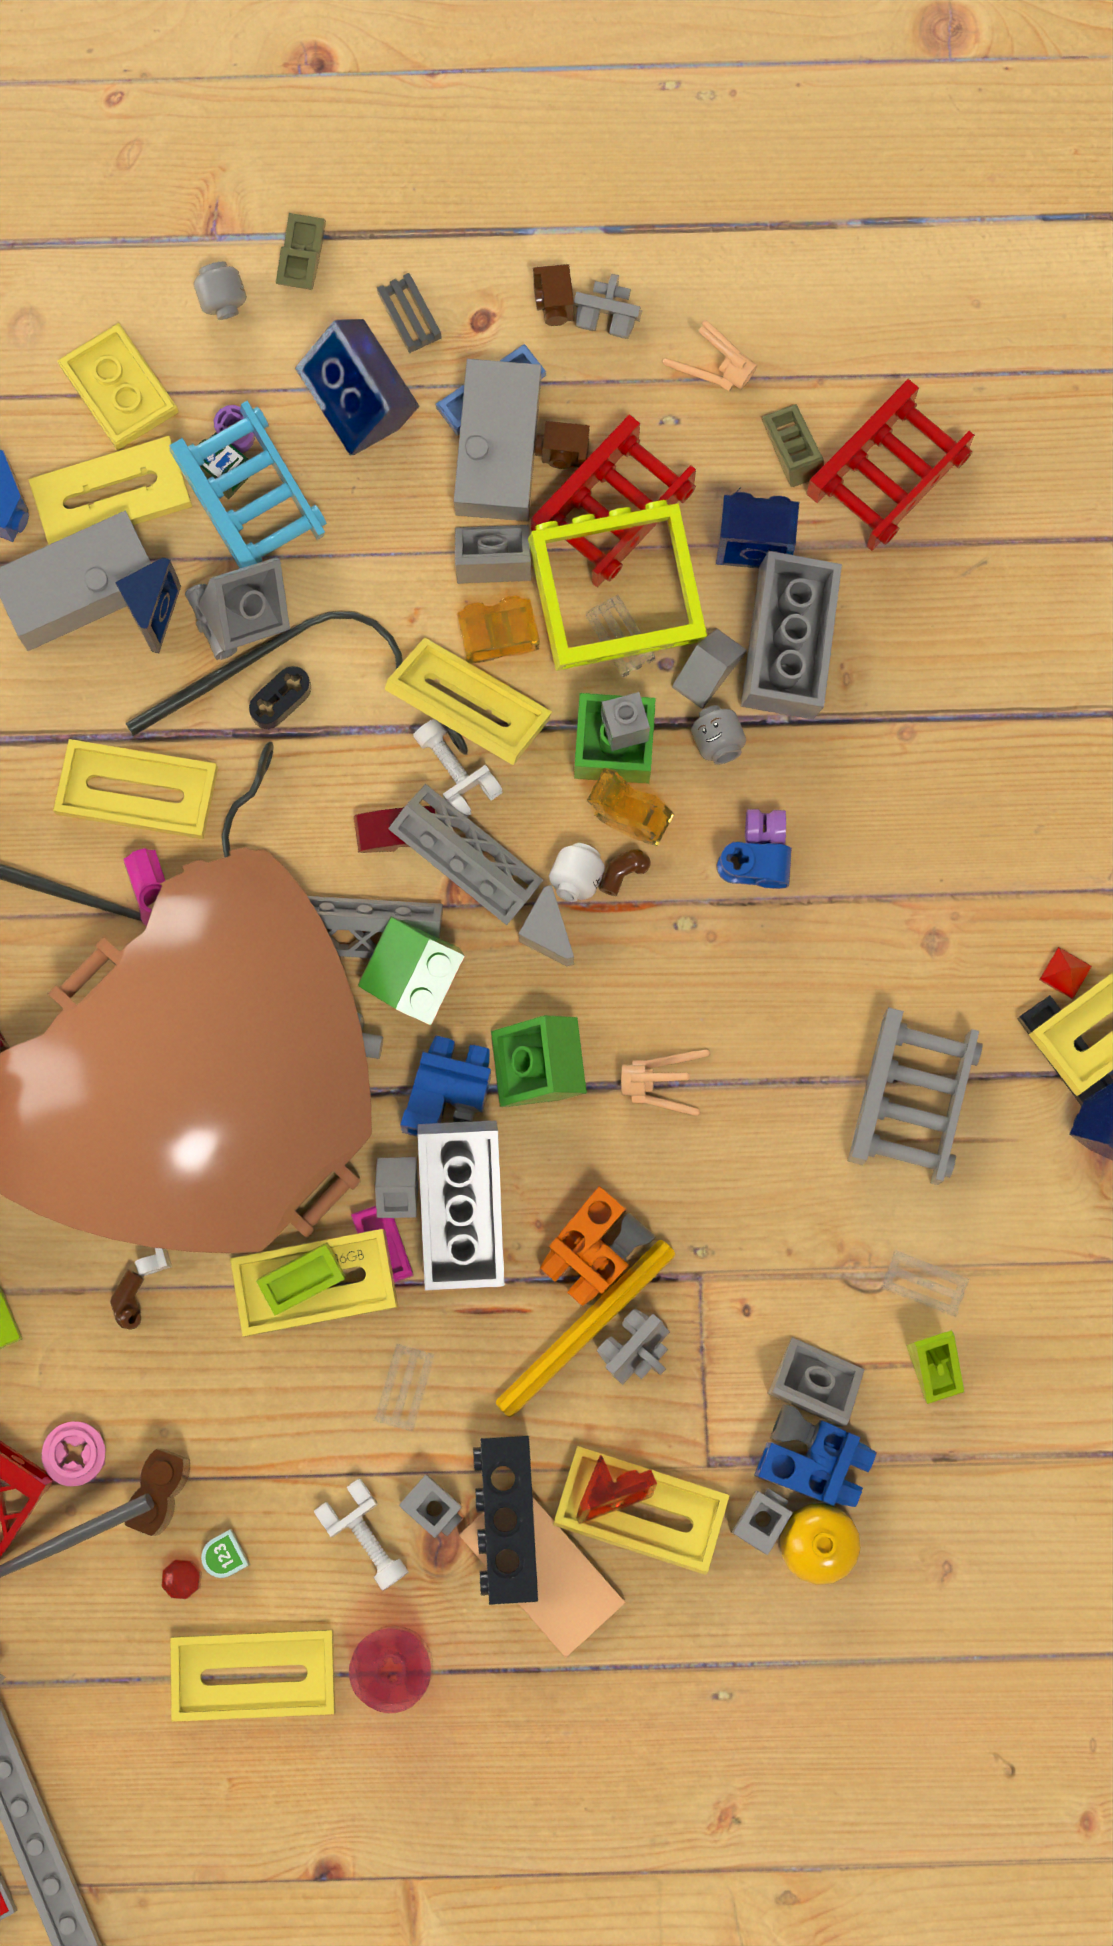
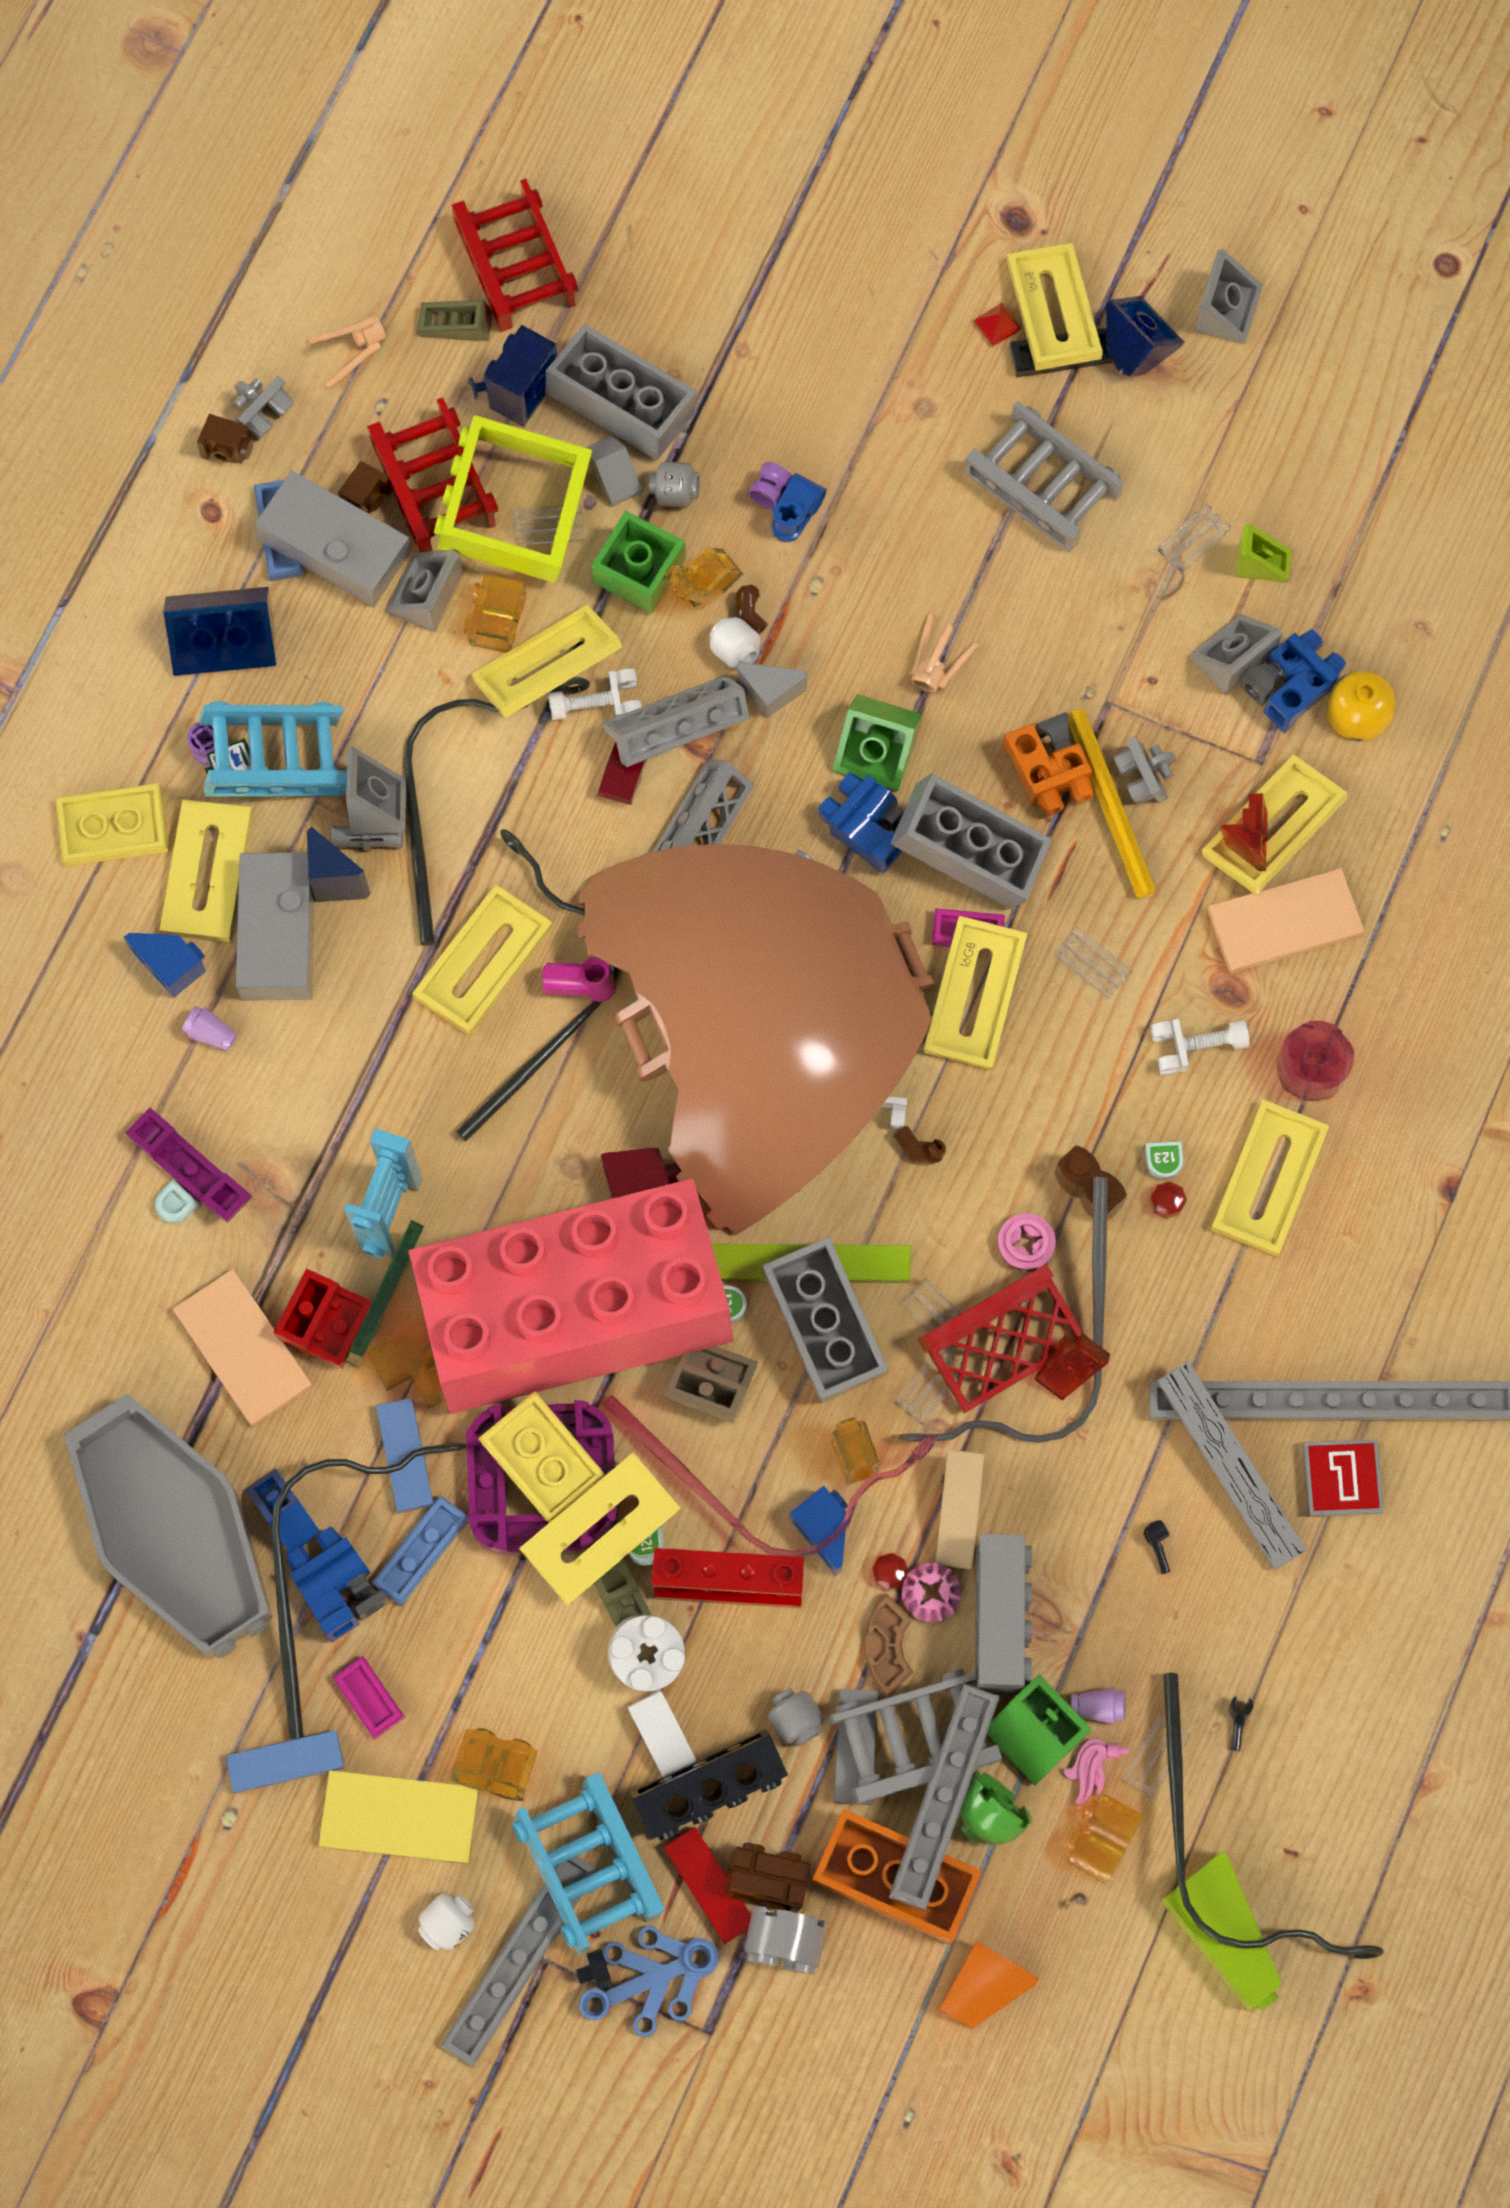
camera: 65 degrees left, 5 degrees down
(220, 290) = (73, 701): light grey head -> none
(274, 691) = (470, 807): black beam -> none
(301, 251) = (71, 625): olive slope -> none
(301, 1279) = (969, 997): lime tile -> none
(396, 1187) = (929, 891): light grey brick -> none
(397, 287) = (192, 556): dark grey tile -> none
(411, 970) = (756, 798): bright green slope -> none
(416, 1506) = (1203, 966): light grey brick -> none
(520, 1584) = (1256, 914): black brick -> none
(625, 721) = (638, 536): light grey brick -> none
(763, 1537) = (1330, 727): light grey brick -> none

